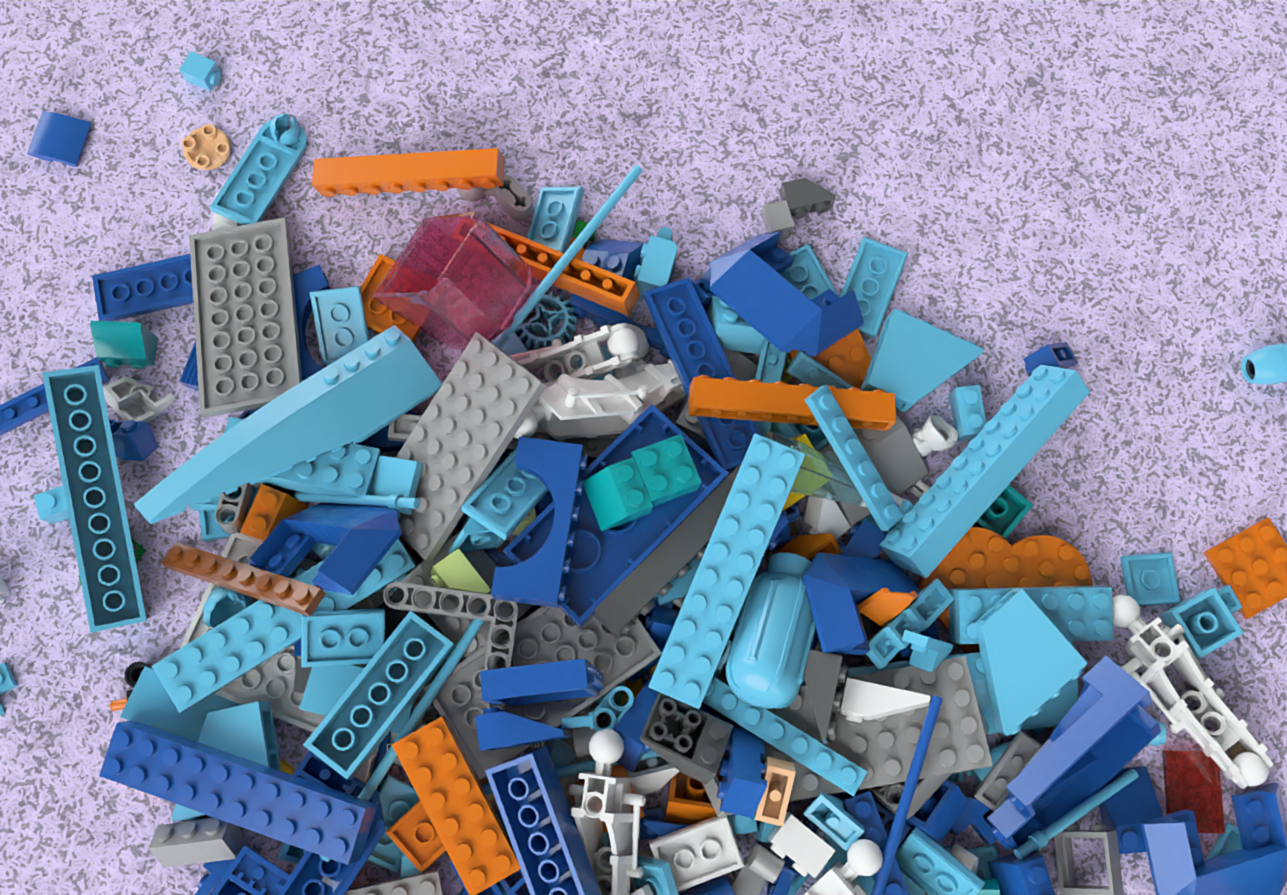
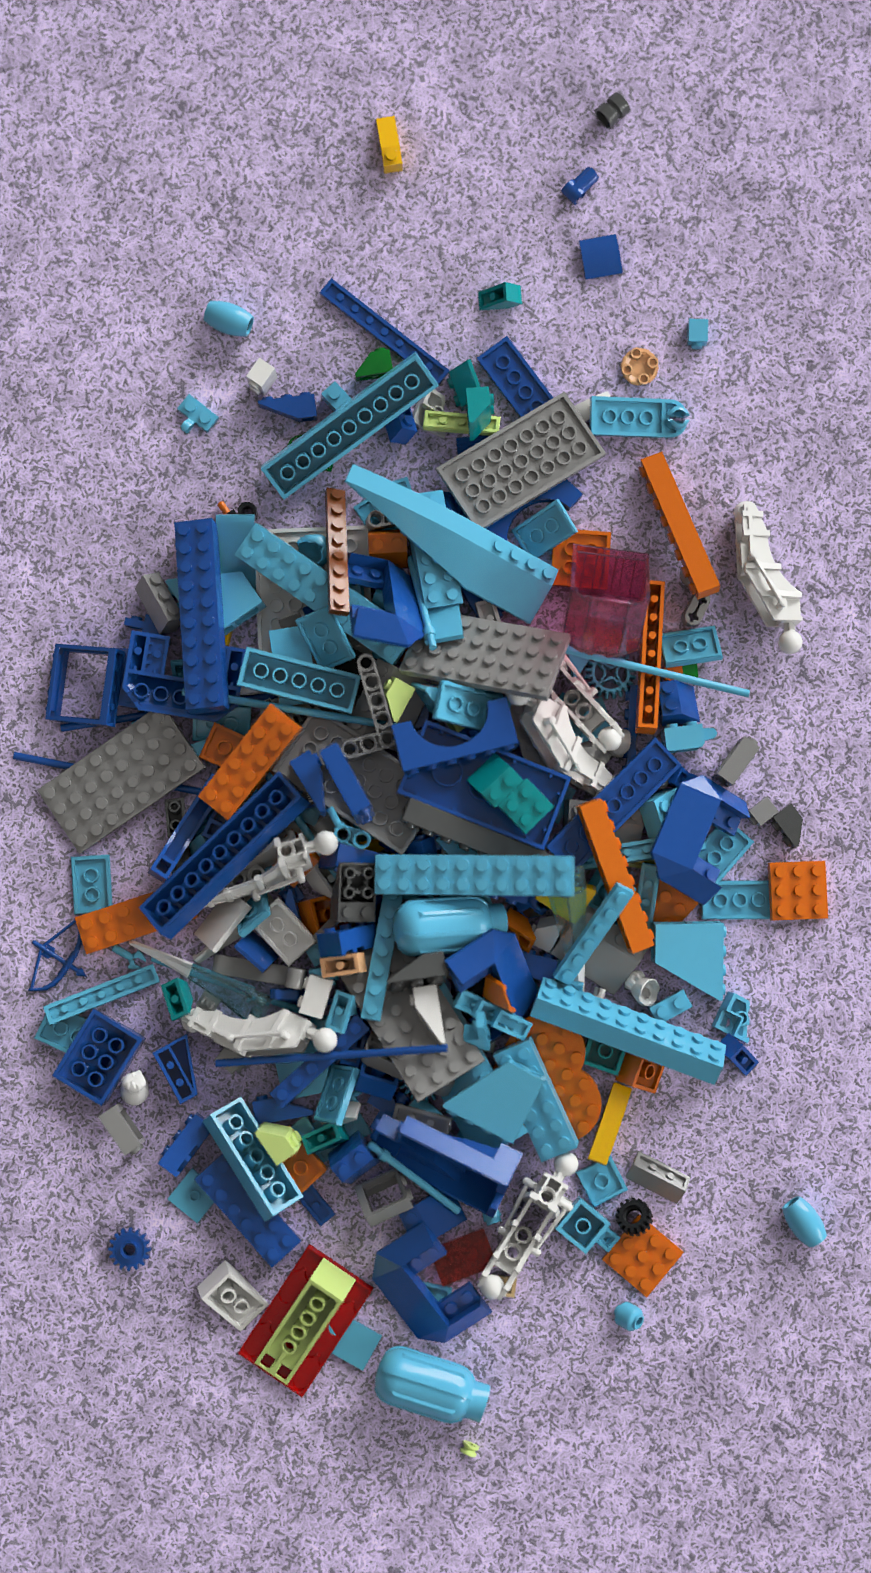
camera: 70 degrees right, 10 degrees up
(41, 443) = (375, 365): none -> green slope
(42, 264) = (500, 297): none -> teal slope
(44, 558) = (297, 408): none -> blue slope
(155, 335) = (479, 409): none -> teal slope
(164, 368) = (455, 423): none -> yellowish green tile
(508, 109) = (761, 577): none -> white piece
(709, 221) = (737, 761): none -> light grey window
(883, 219) = (797, 890): none -> orange plate
(968, 786) = (402, 1098): none -> blue plate
(998, 342) = (735, 1009): none -> medium azure slope
(1037, 481) = (640, 1073): none -> orange slope
(1090, 543) = (609, 1123): none -> yellow slope
(1168, 510) = (658, 1177): none -> light grey panel
(1214, 573) = (642, 1224): none -> black tyre

